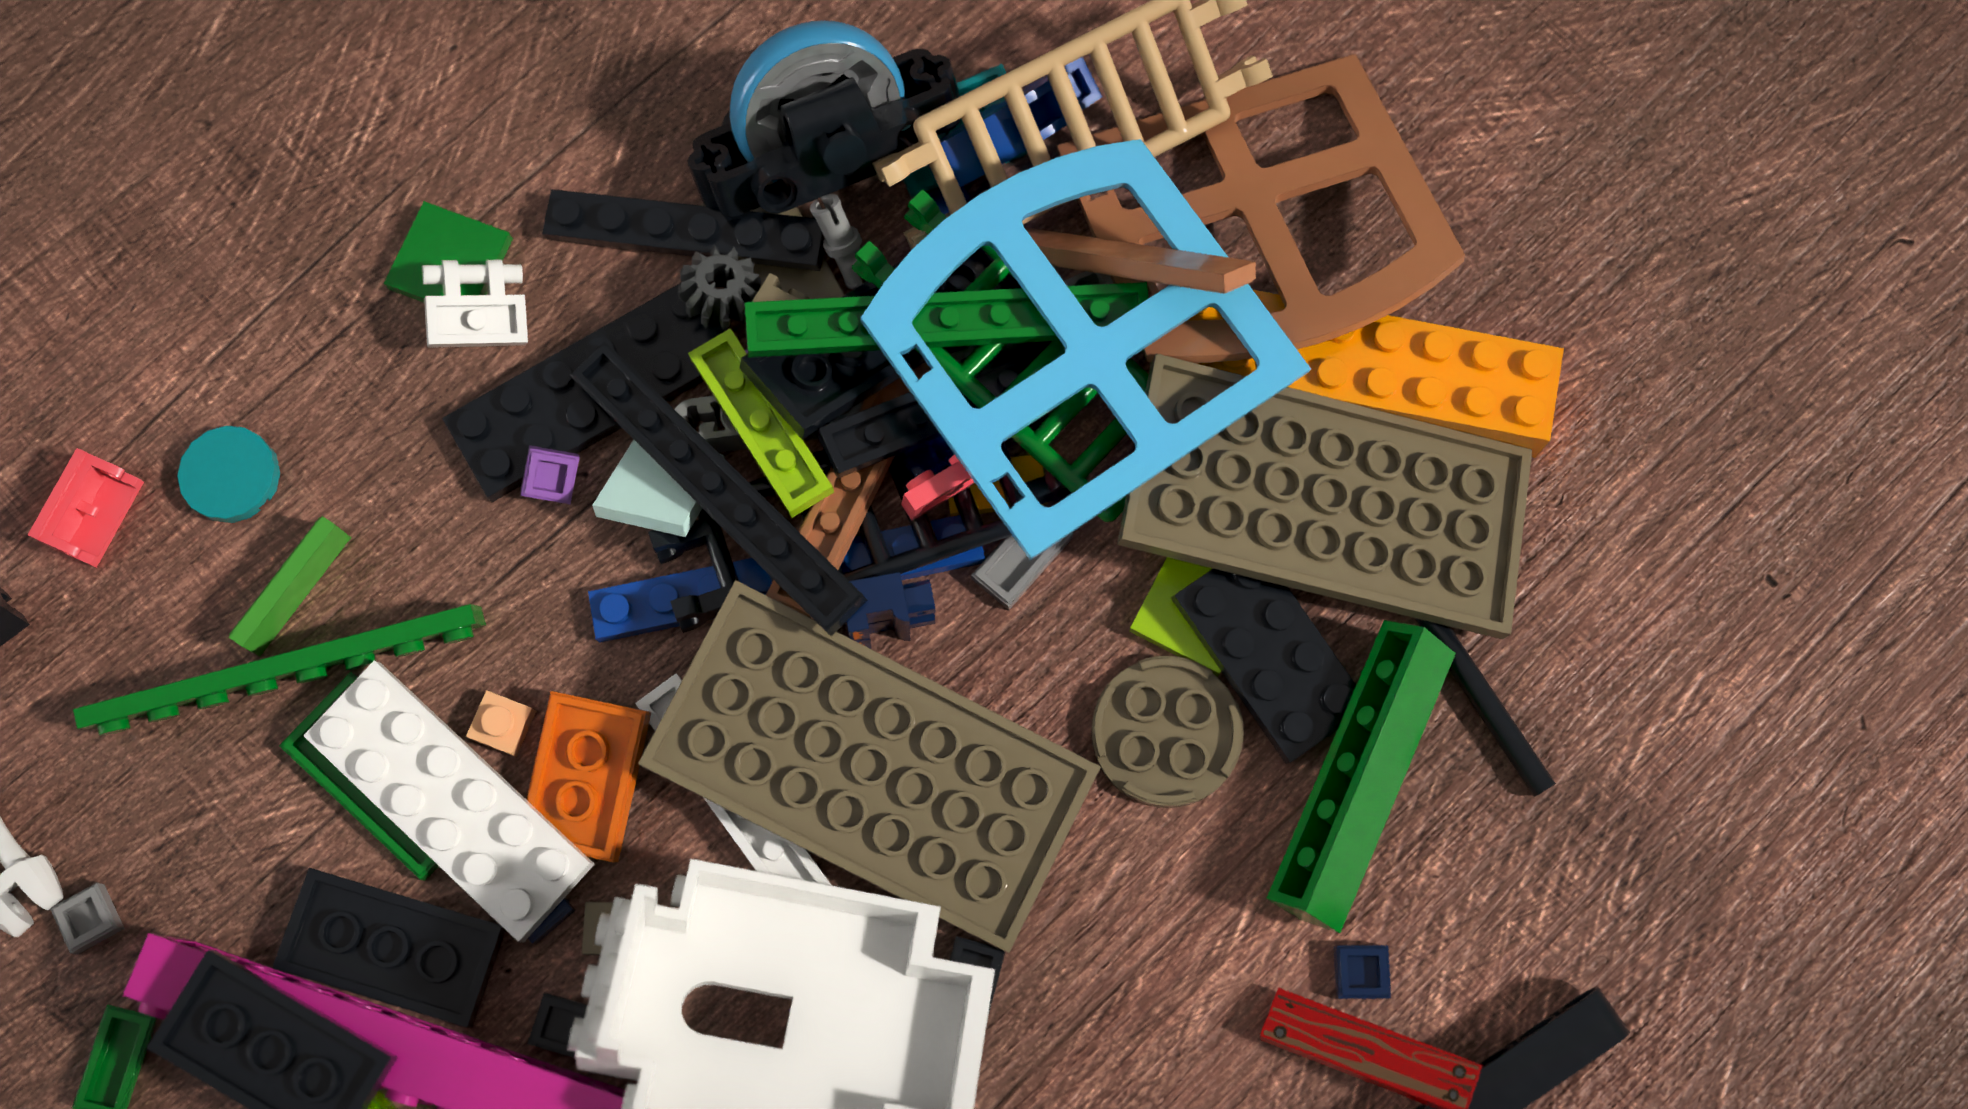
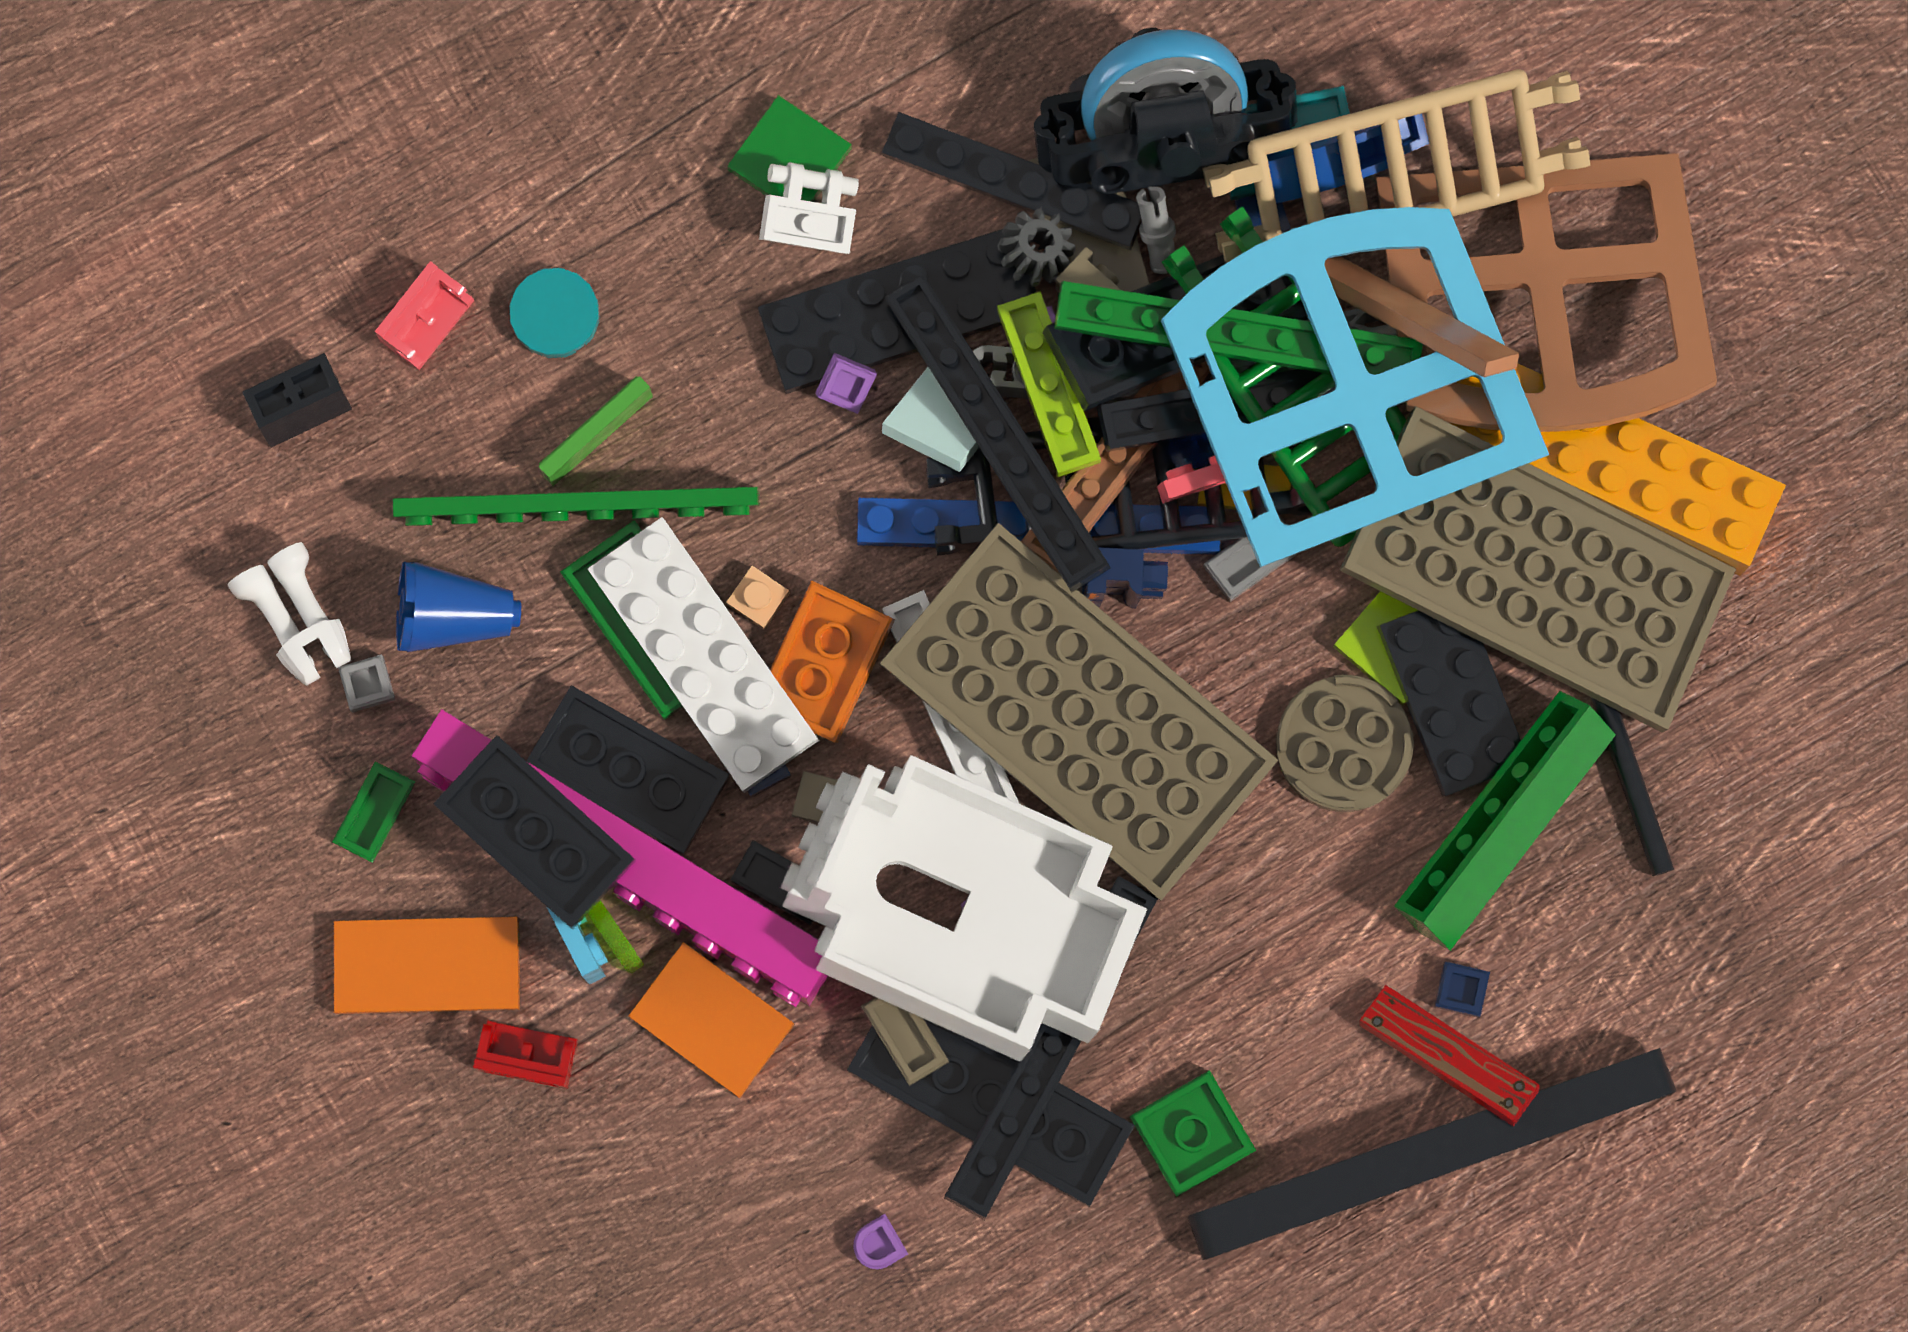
camera: 10 degrees right, 5 degrees up
(157, 816) = (450, 609): none -> blue cone

